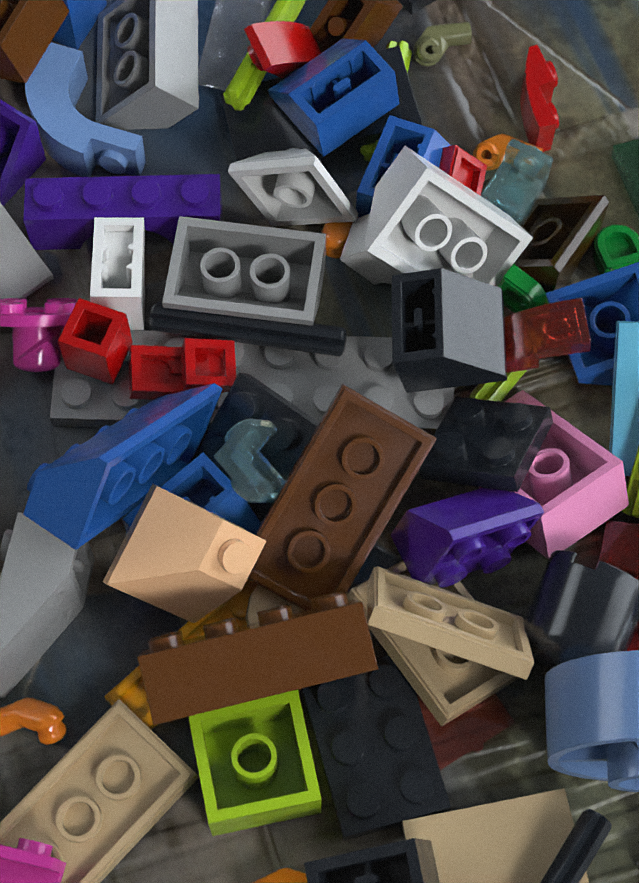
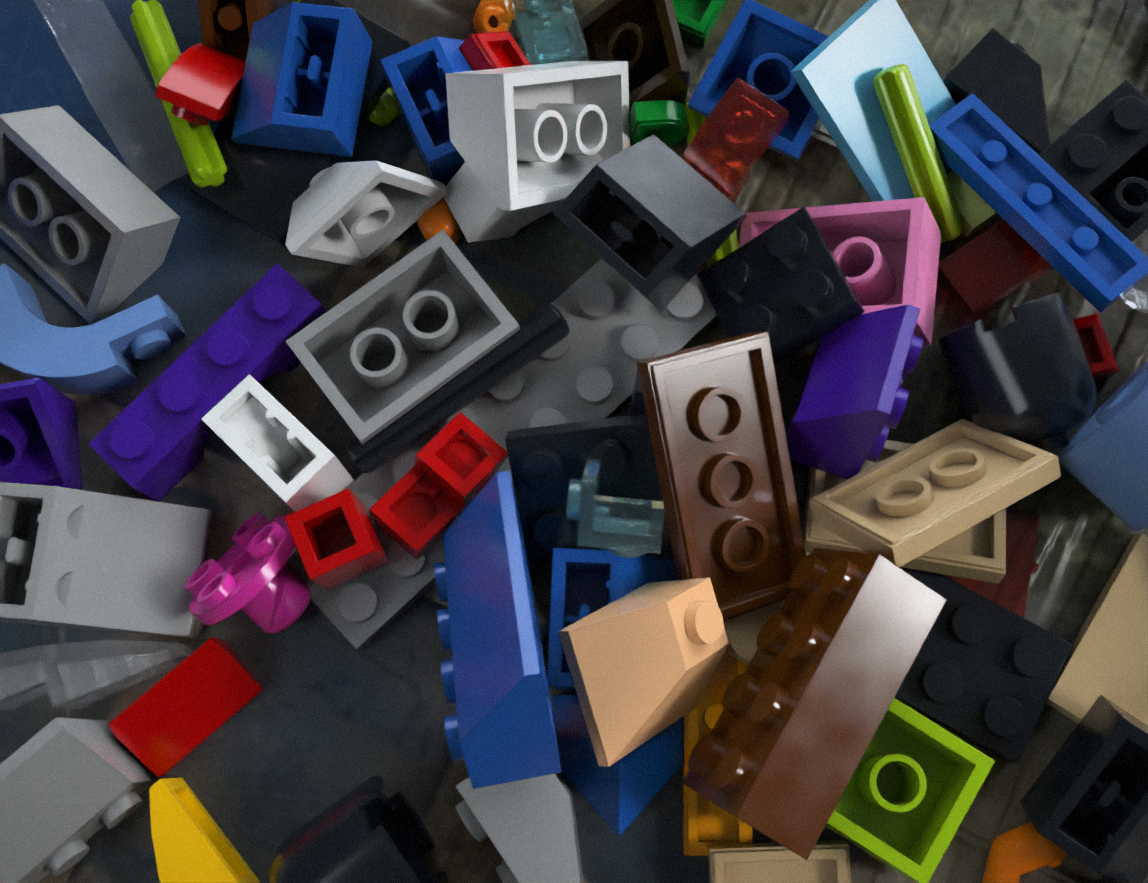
camera: 40 degrees left, 10 degrees up
(119, 617) = (627, 785): none -> blue slope

